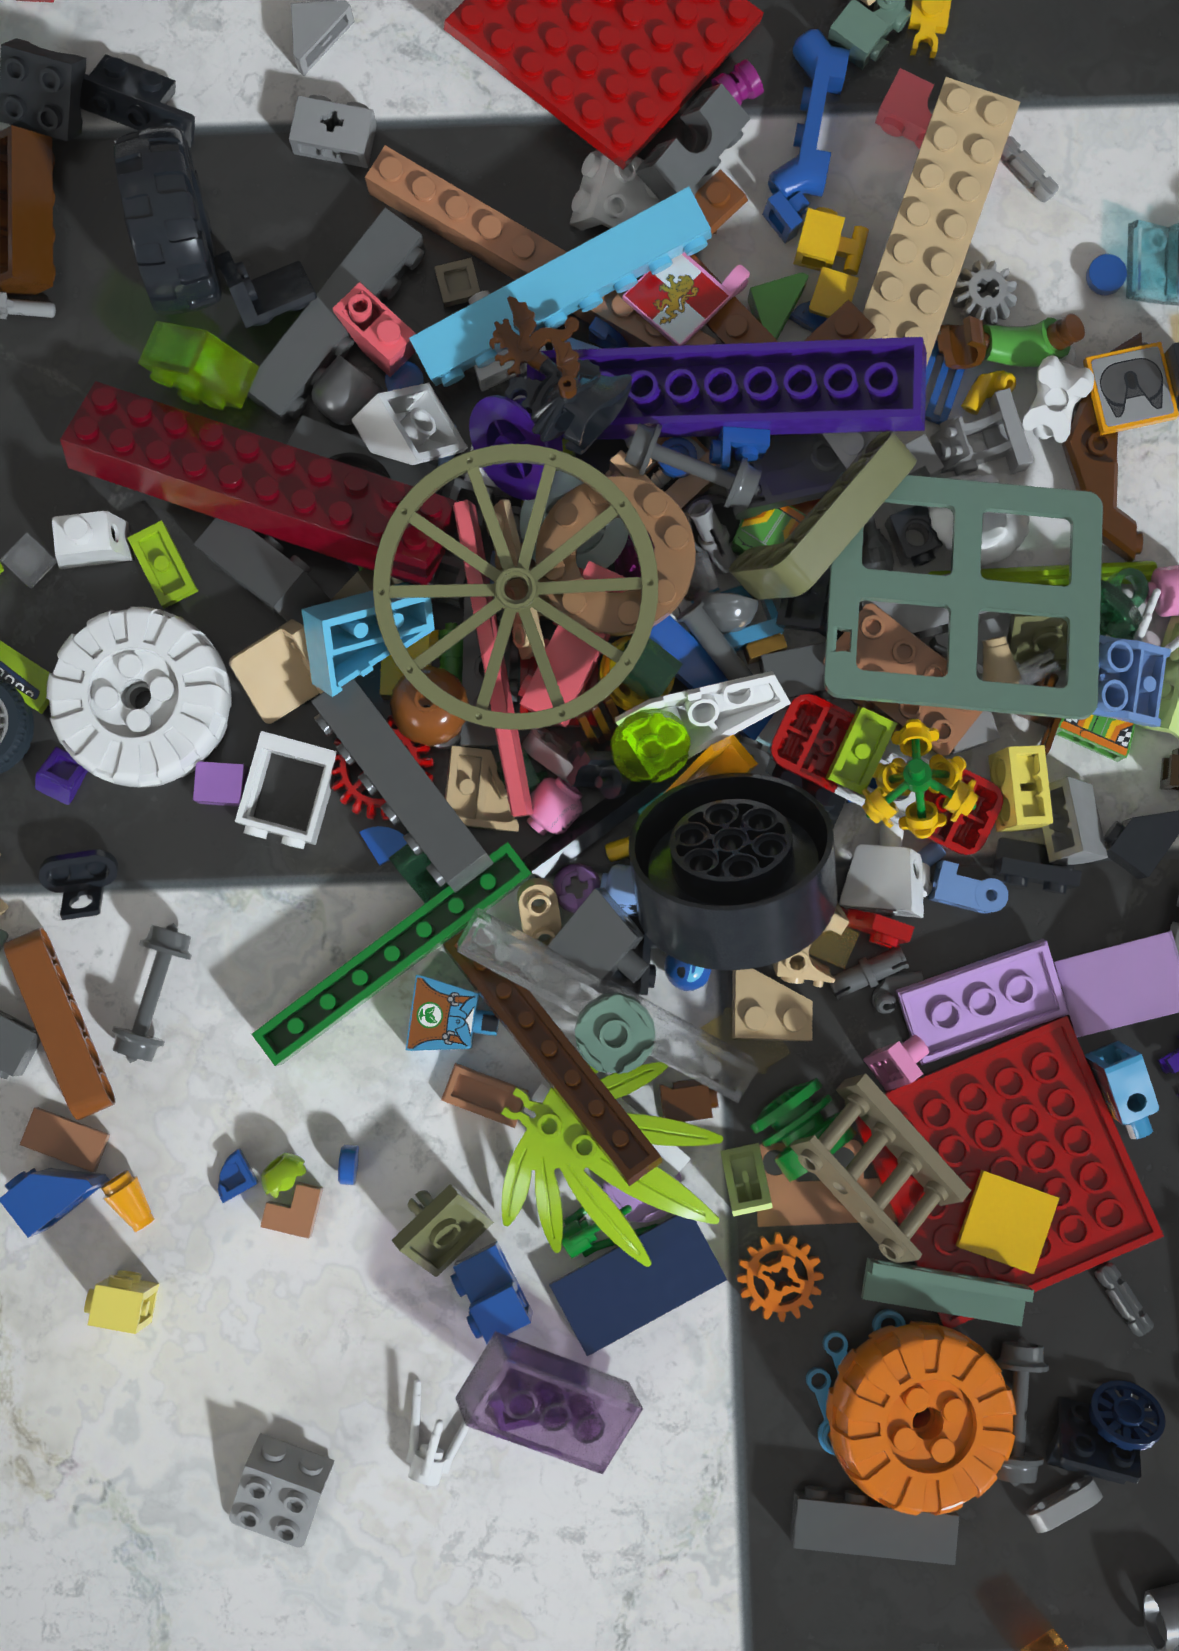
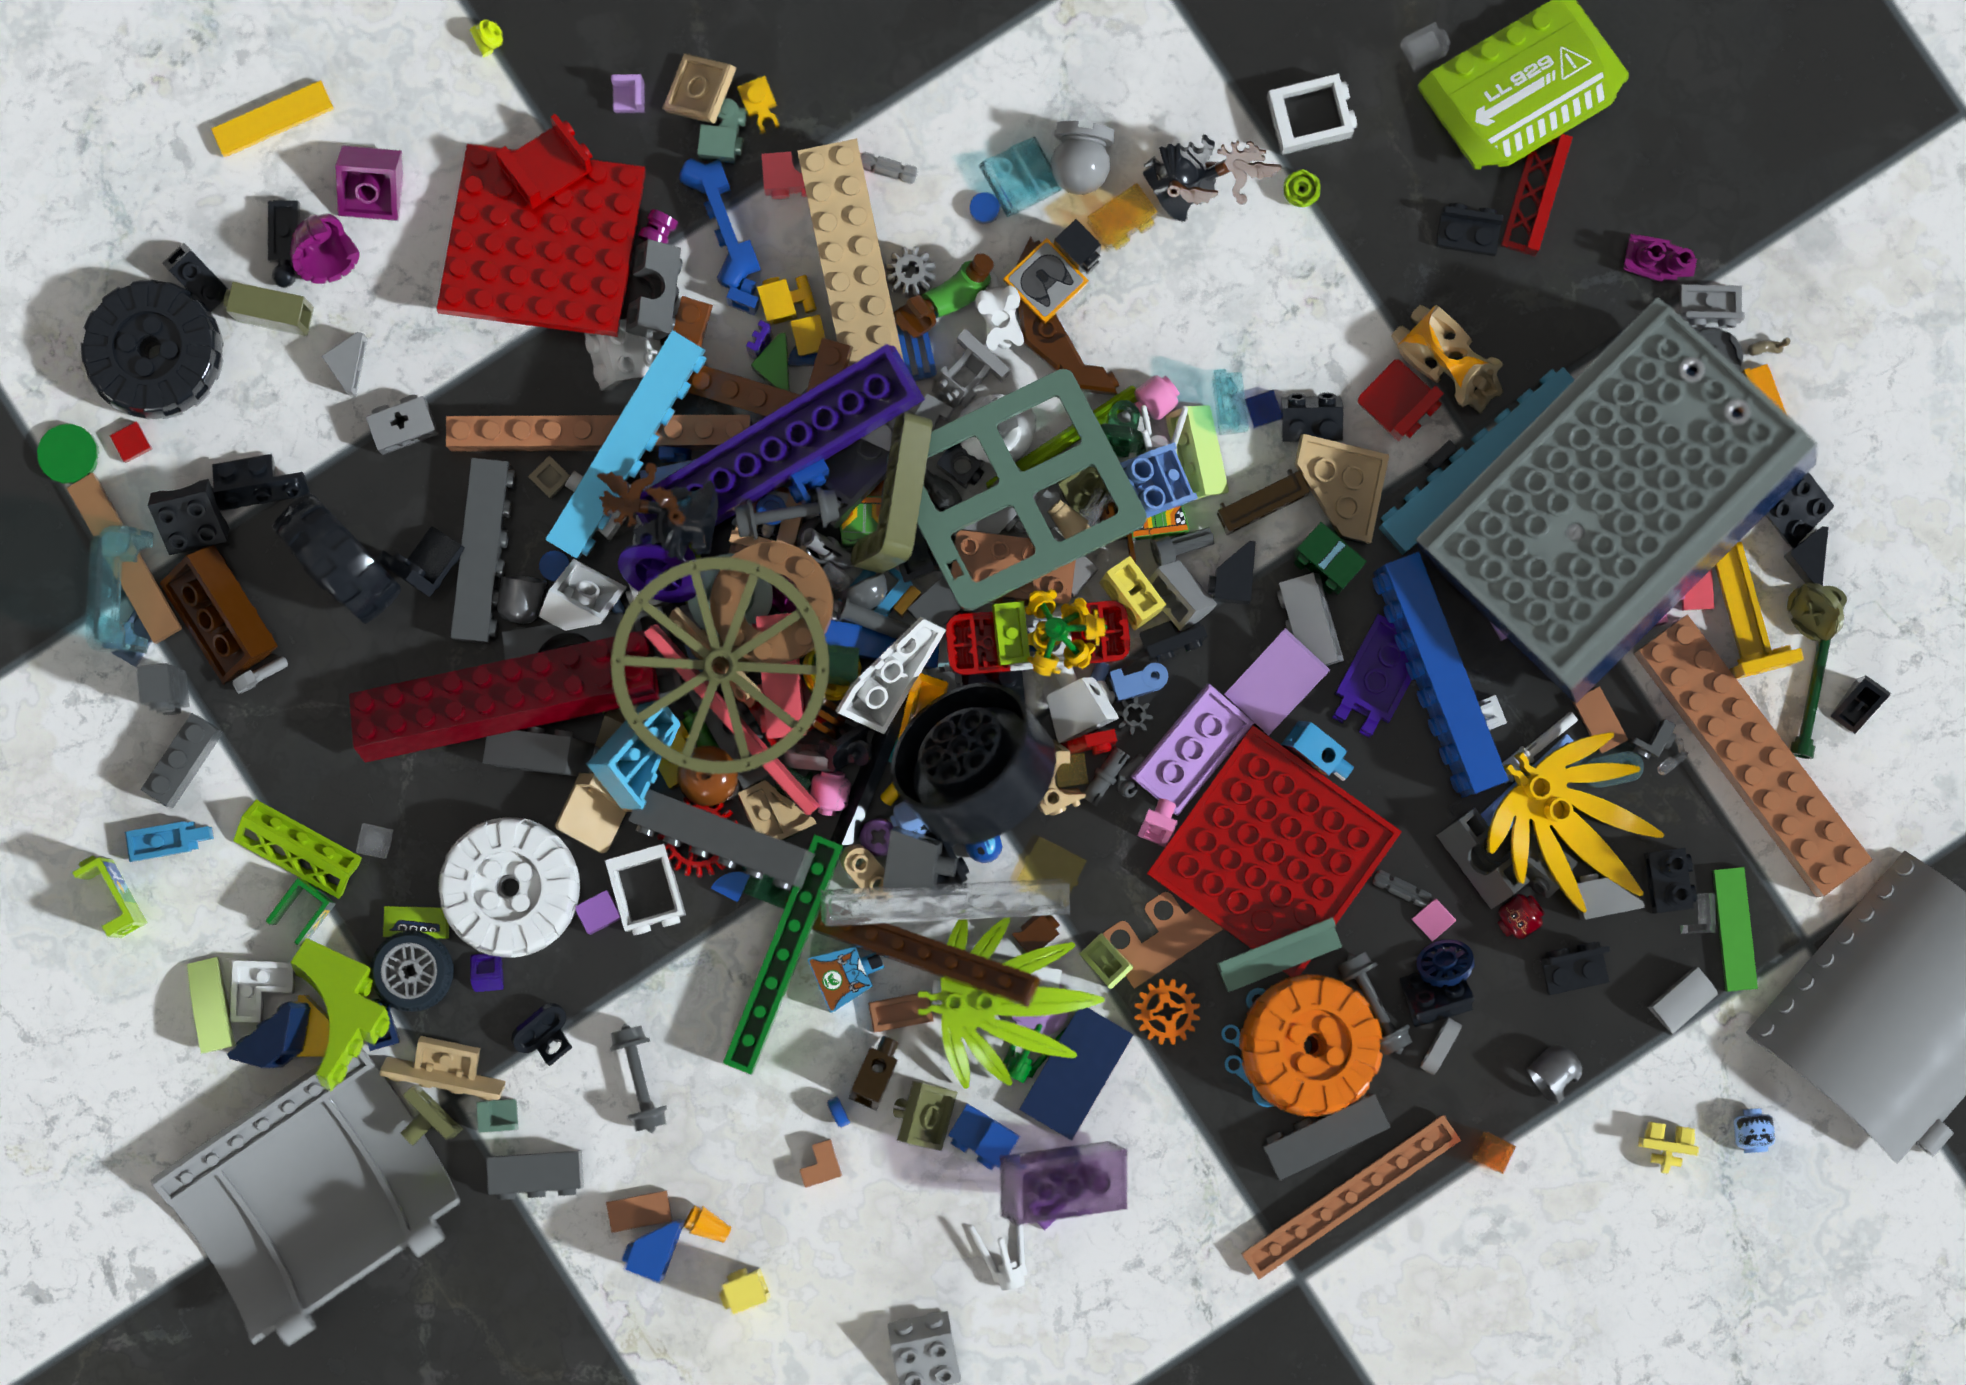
camera: 30 degrees left, 0 degrees up
(59, 1023) = (588, 1136): dark orange beam -> none
(88, 539) = (410, 802): white torso -> none
(162, 564) = (467, 789): lime plate -> none
(198, 366) = (413, 642): clear neon green brick -> none
(235, 1176) = (768, 1166): blue tile -> none
(281, 1173) = (798, 1144): lime plate -> none
(375, 329) = (516, 544): coral slope -> none
(401, 1160) = (871, 1085): none -> dark brown torso
(615, 1033) = (961, 916): sand green tile -> none
(650, 745) = (870, 714): clear neon green tile -> none
(683, 297) = (711, 401): flag -> none
(768, 1009) = (1054, 840): tan wing -> none
(769, 270) = (759, 345): none -> dark purple tile
(794, 1118) = (1122, 905): green wheel -> none
(861, 1612) = (1350, 1196): none -> nougat plate
(913, 1156) = (1194, 873): dark tan fence -> none
(945, 915) = (1134, 707): none -> dark grey gear
(984, 387) = (948, 334): yellow arm -> none
(1007, 1222) = (1293, 884): yellow tile -> none
(1088, 763) = (1165, 548): none -> dark grey piece
(1140, 1356) = (1433, 919): none -> bright pink slope

